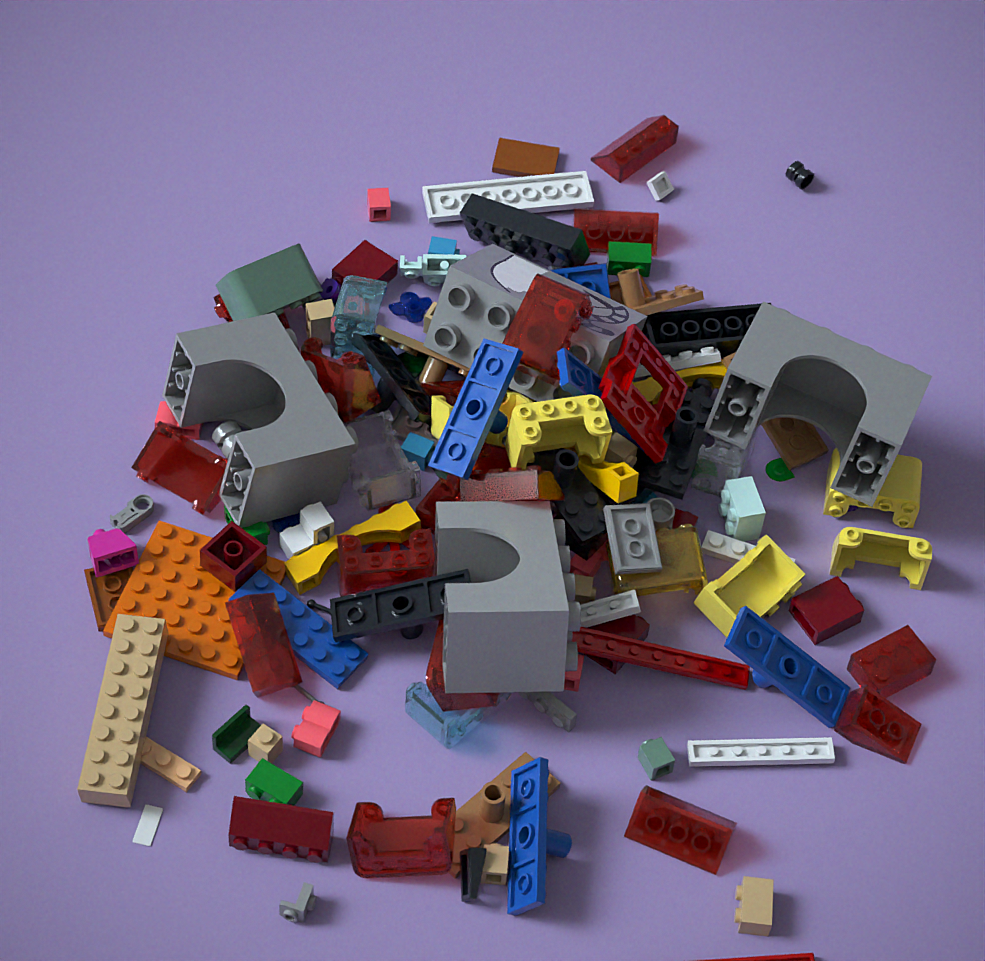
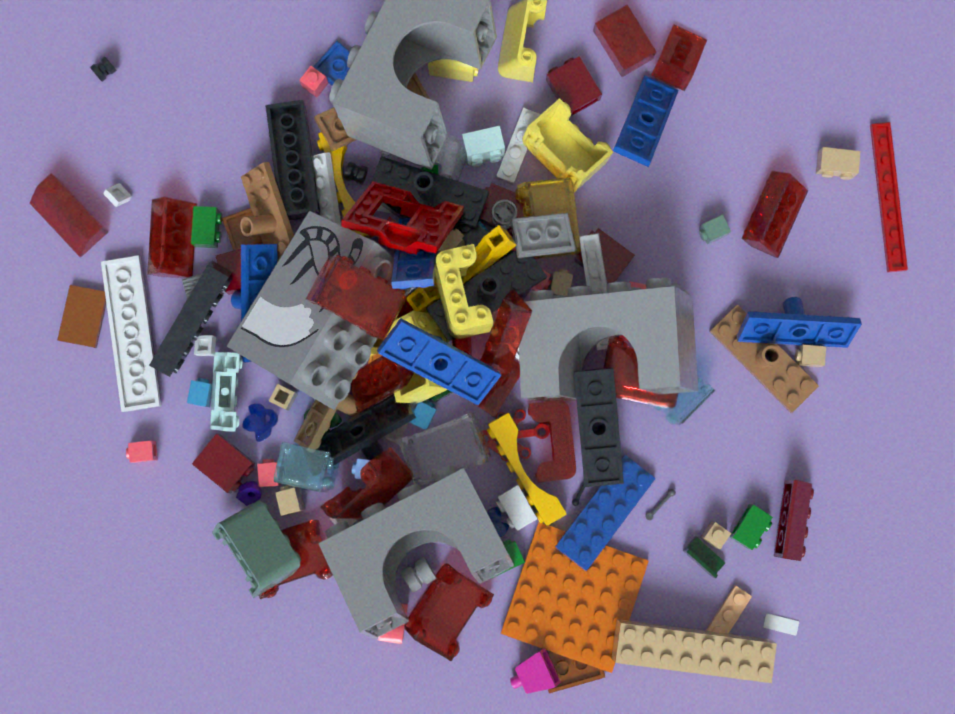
camera: 85 degrees left, 30 degrees up
(131, 515) = (491, 657): light grey piece -> none
(233, 556) = (548, 568): dark red brick -> none
(263, 643) = (629, 540): clear red slope -> none
(298, 911) = (850, 500): light grey bracket -> none
(316, 728) = (697, 495): coral brick -> none
(402, 844) = (797, 426): clear red windscreen -> none
(471, 869) = (818, 372): black slope -> none
(661, 658) = (628, 222): red tile -> none
(760, 752) = (704, 149): white plate -> none

